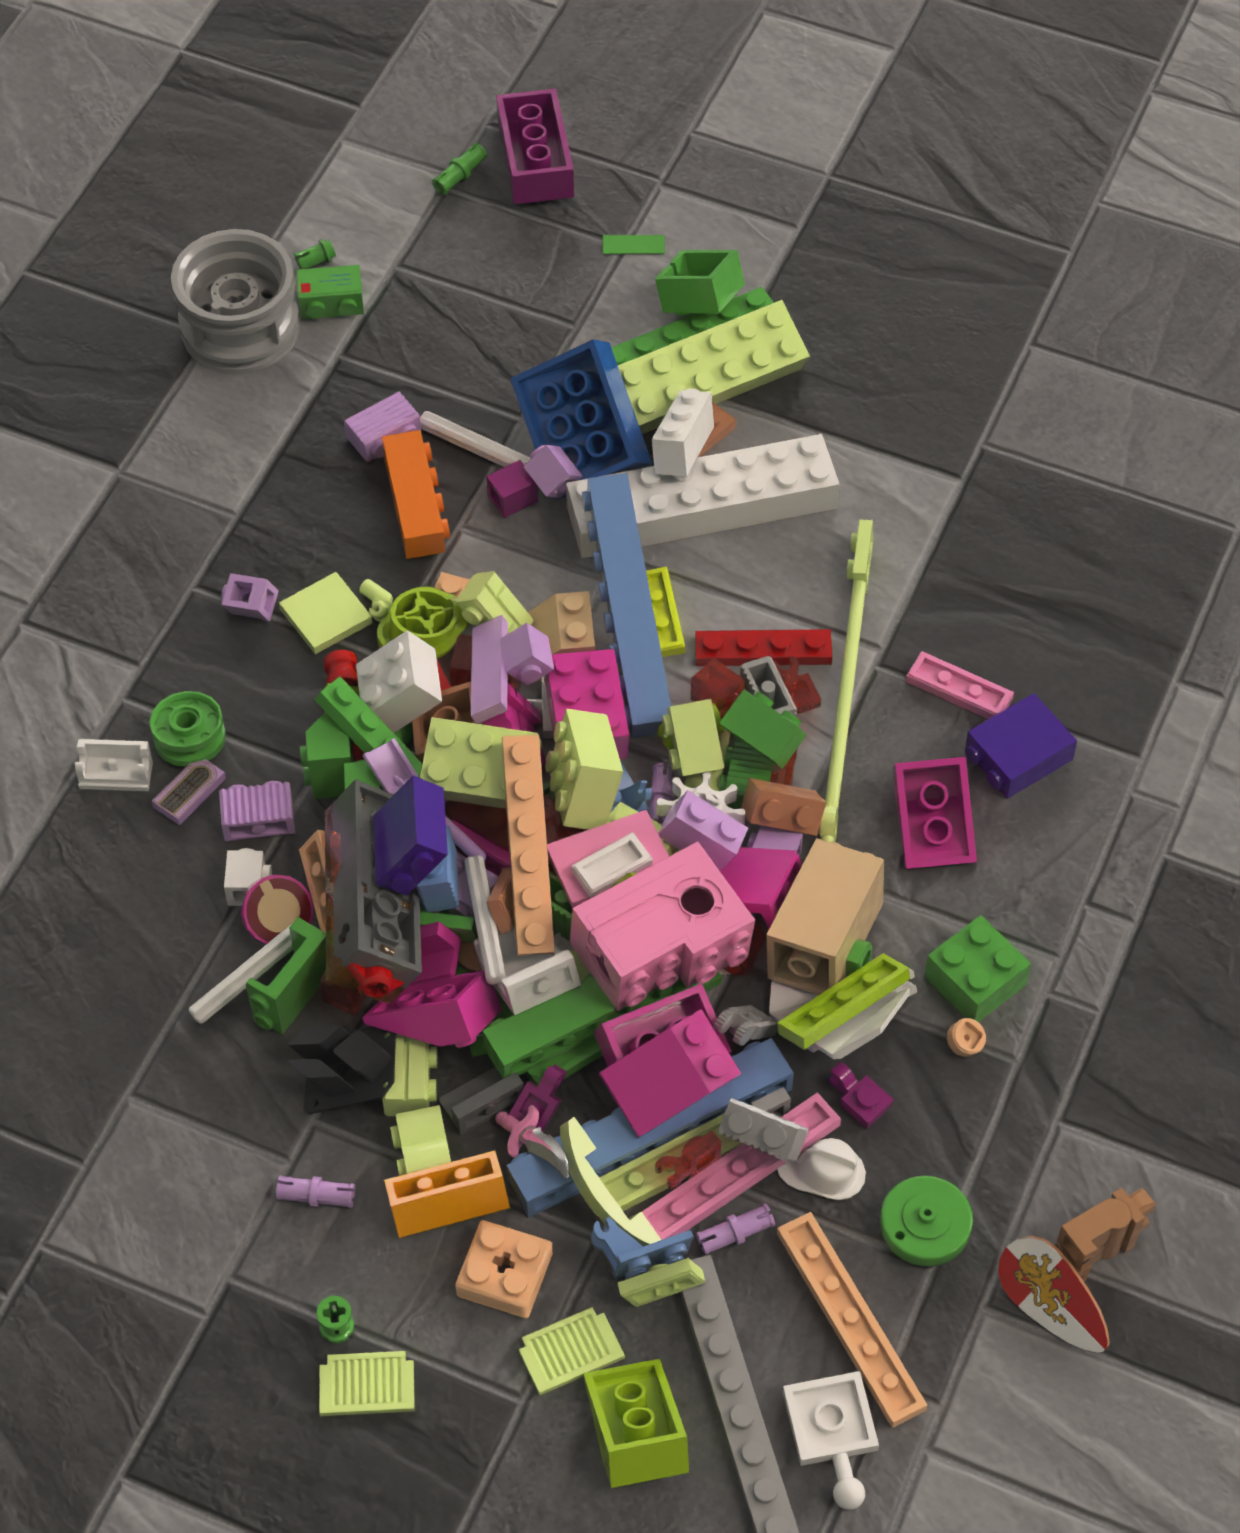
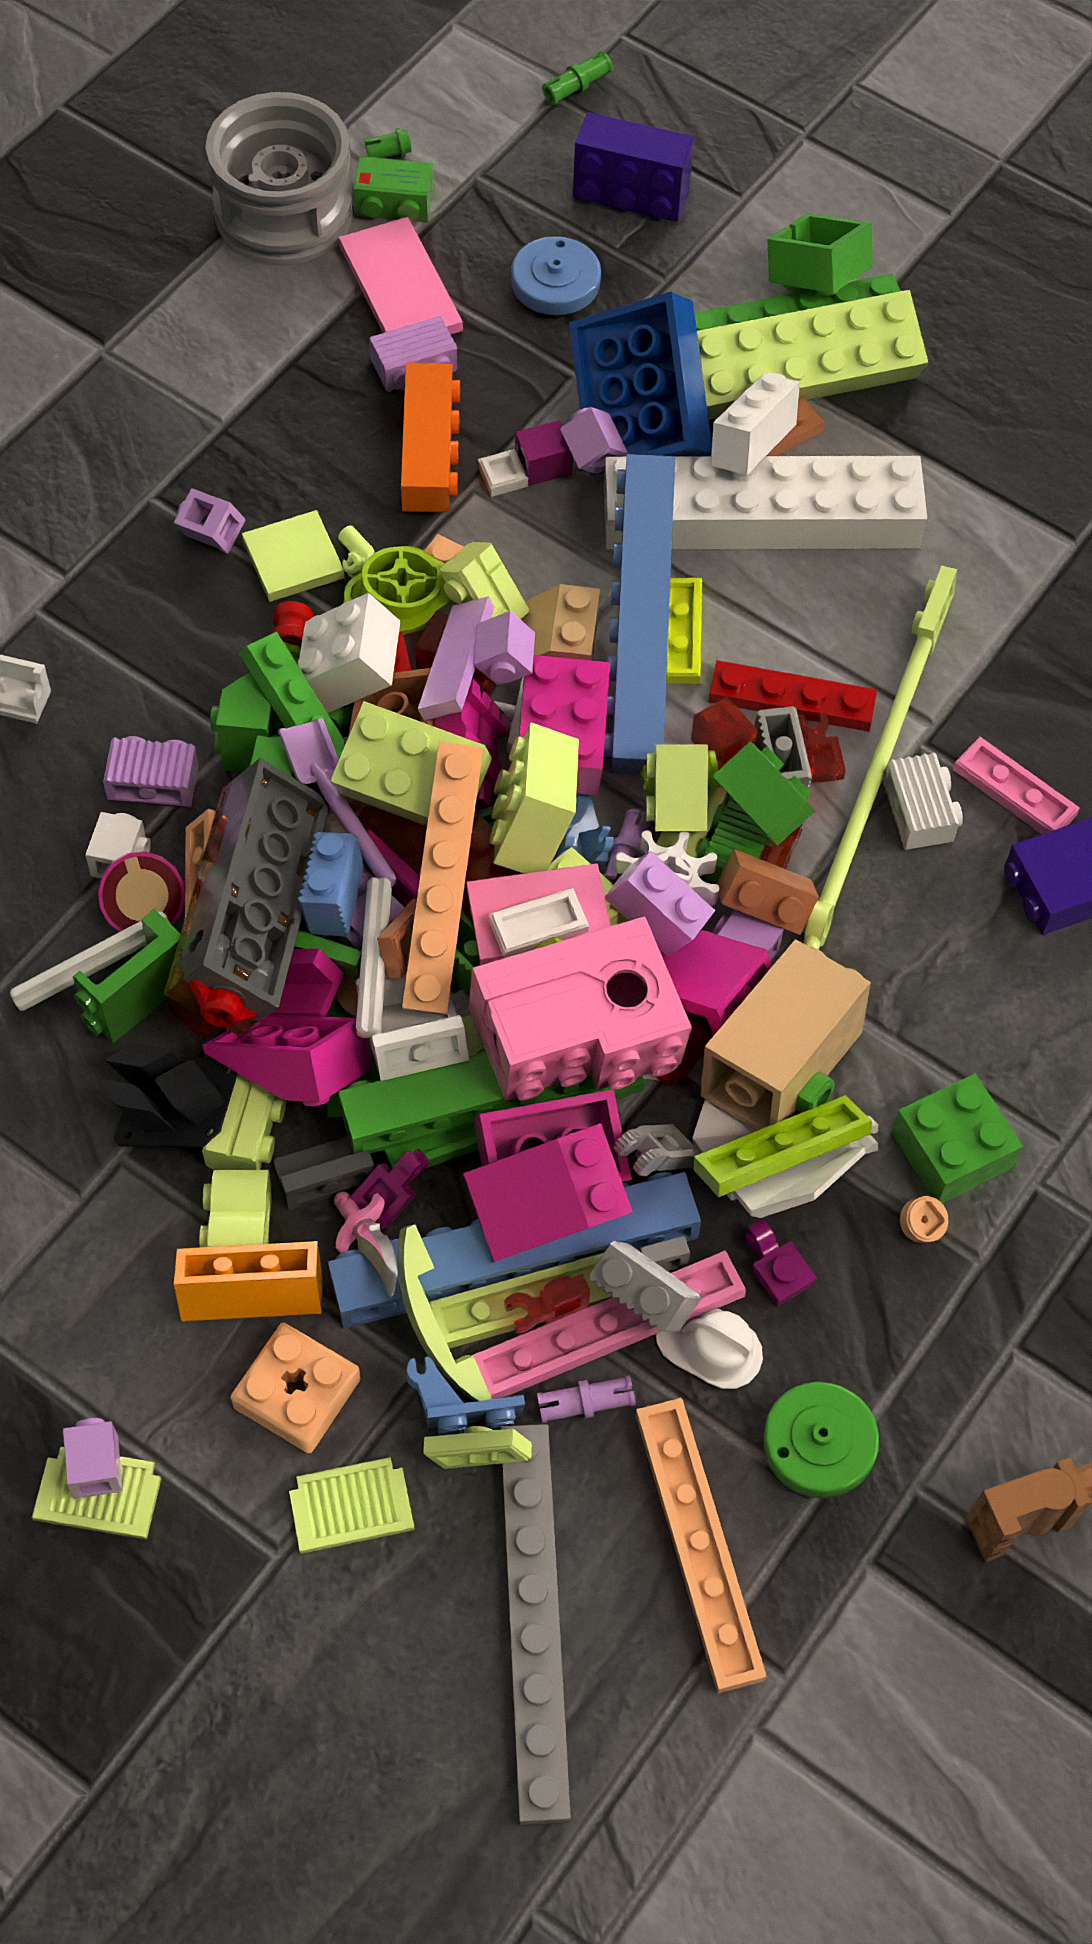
camera: 10 degrees right, 5 degrees up
(187, 728) = (97, 659): bright green wheel -> none
(188, 790) = (82, 731): tile -> none
(315, 1191) = (98, 1243): lavender pin -> none
(326, 1313) = (68, 1398): bright green bush -> none
(352, 365) = (398, 276): none -> bright pink tile
(358, 1355) = (92, 1458): none -> lavender brick
(410, 835) = (303, 839): dark purple brick -> none
(470, 440) = (509, 387): white axle -> none
(481, 511) = (502, 472): none -> white tile
(484, 339) = (555, 275): none -> medium blue wheel
(527, 237) = (632, 166): none -> dark purple brick
(535, 146) = (669, 65): magenta brick -> none
(633, 244) = (756, 199): bright green sticker -> none
(637, 1423) = (405, 1617): lime slope -> none
(831, 1423) = (644, 1674): white plate -> none
(887, 712) = (922, 801): none -> white brick
(934, 812) = (949, 935): dark pink slope -> none
(1052, 1292) = (955, 1567): shield -> none

